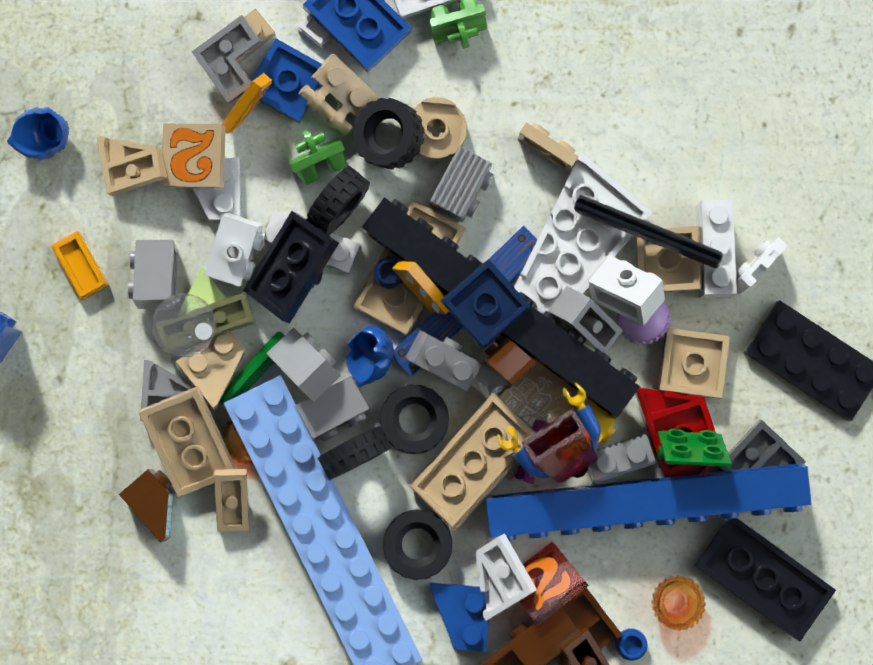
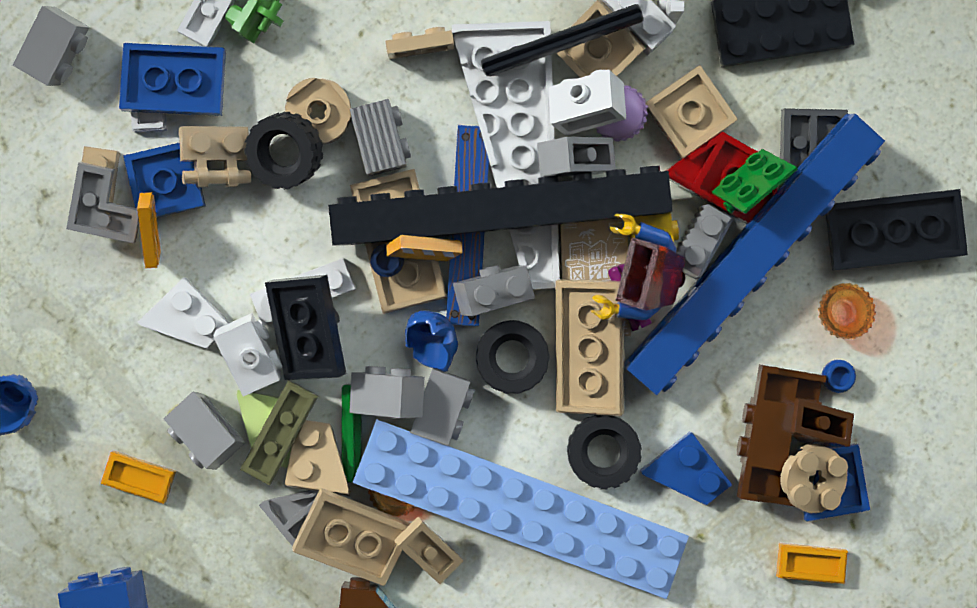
camera: 40 degrees left, 5 degrees up
(129, 165) = (102, 363): tan wing -> none
(183, 325) = (264, 451): clear tile -> none
(194, 155) = (145, 309): tan tile -> none
(305, 163) = (251, 207): bright green hips -> none
(338, 200) = (294, 240): black tyre -> none
(354, 452) = (491, 427): black tyre -> none
(485, 304) = (487, 216): dark blue tile -> none
(502, 576) = (693, 417): white wing -> none
(508, 361) = (546, 245): reddish brown slope -> none
(555, 583) = (731, 391): clear red tile -> none

